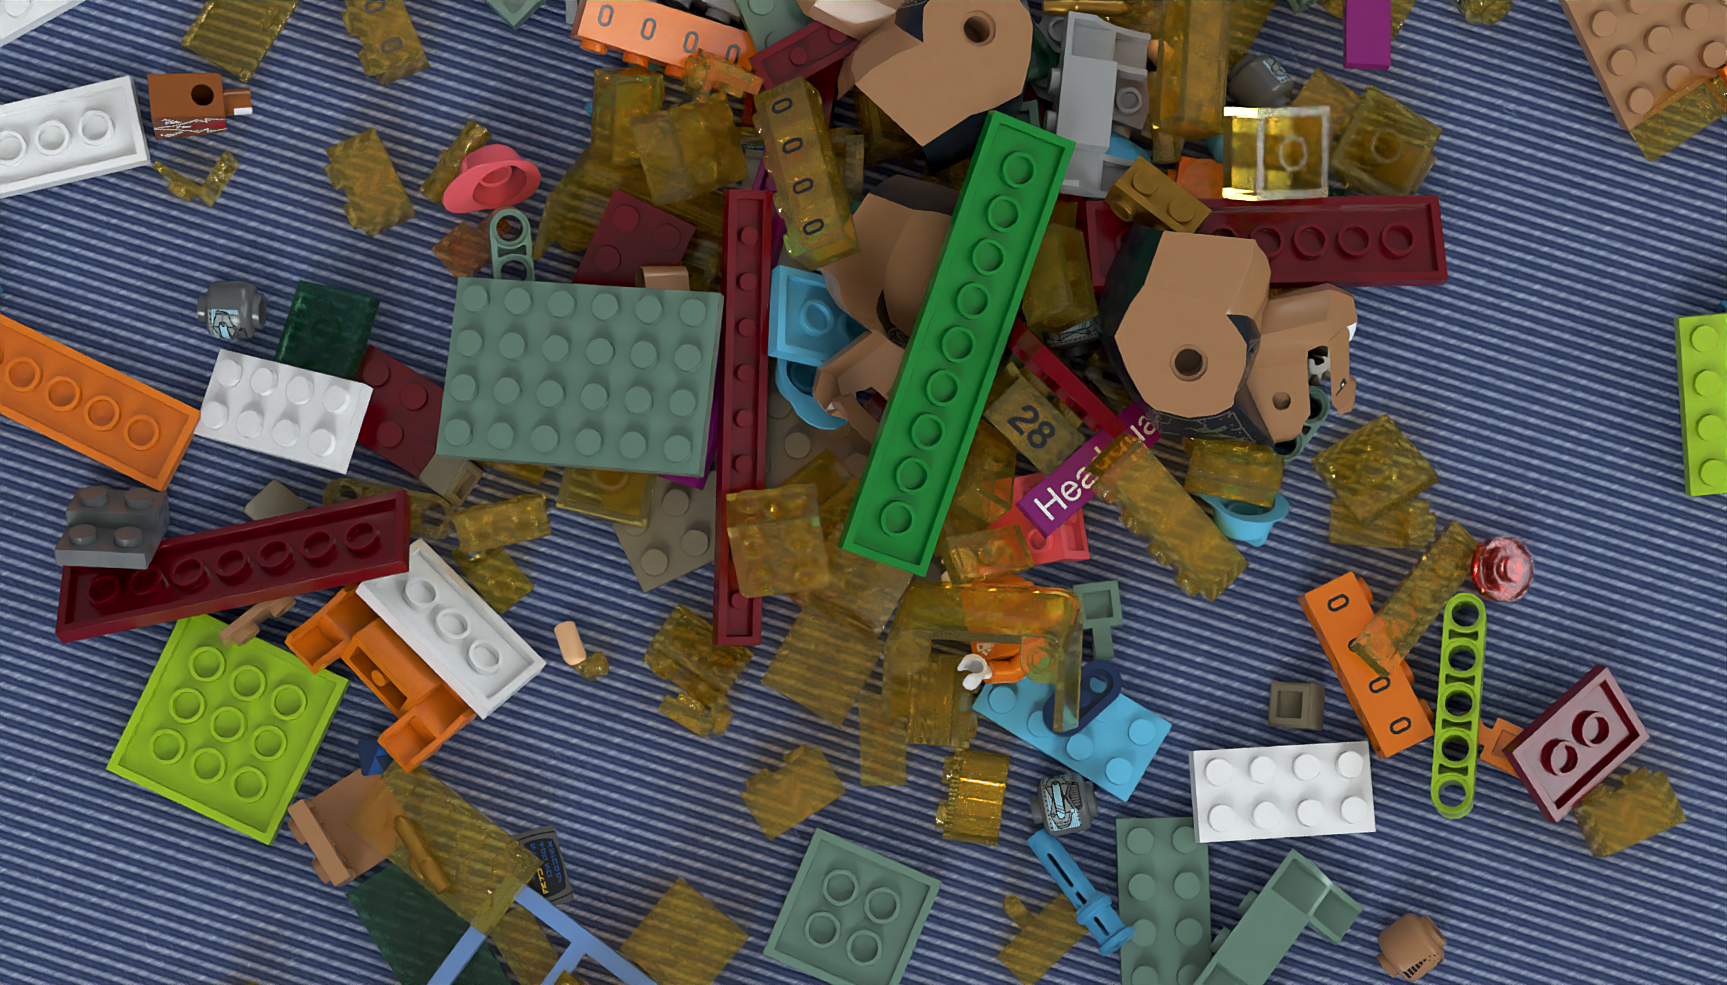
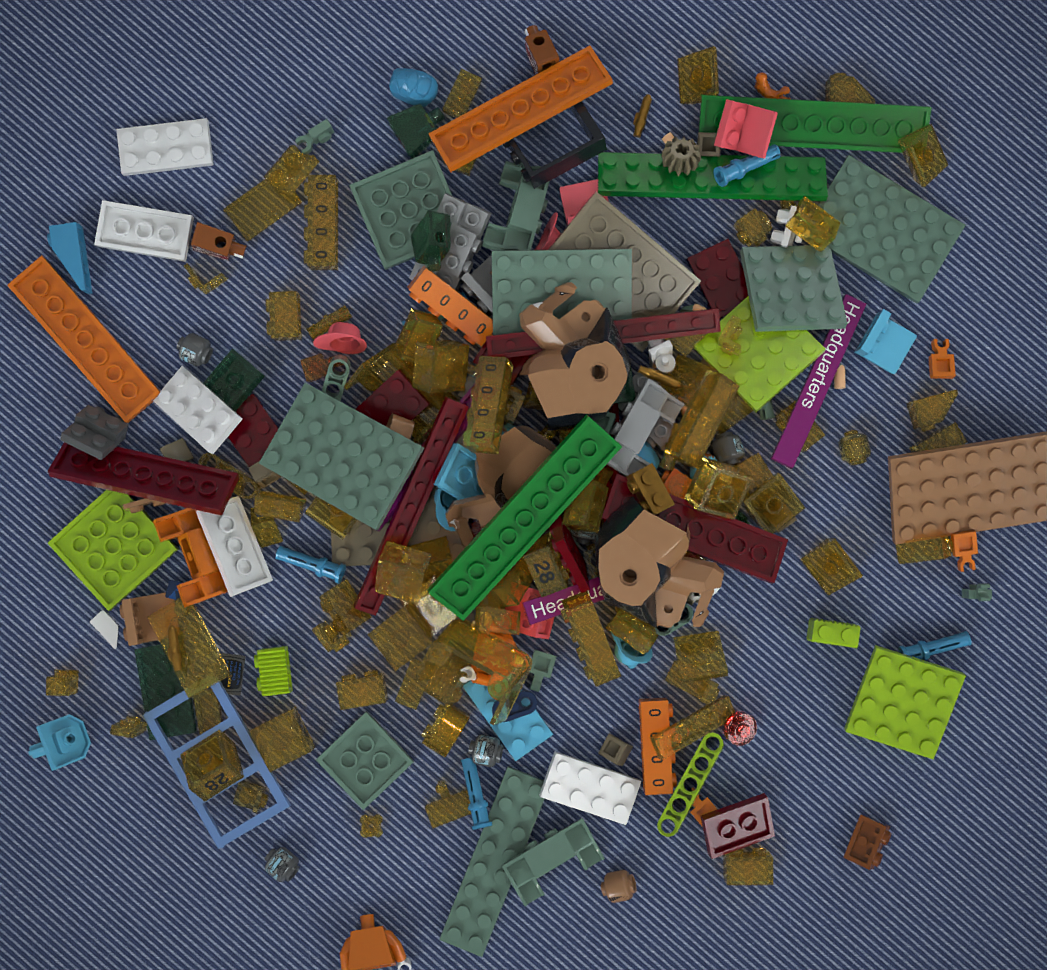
camera: 25 degrees right, 5 degrees up
(276, 880) = (106, 627): none -> white sticker
(574, 654) = (287, 581): arm -> none
(617, 825) = (273, 670): none -> lime brick
(626, 606) = (322, 564): none -> dark azure pin
(710, 69) = (466, 333): clear yellow bracket -> none
(1534, 213) = (831, 566): none -> clear yellow slope
(1590, 329) = (833, 632): none -> lime brick

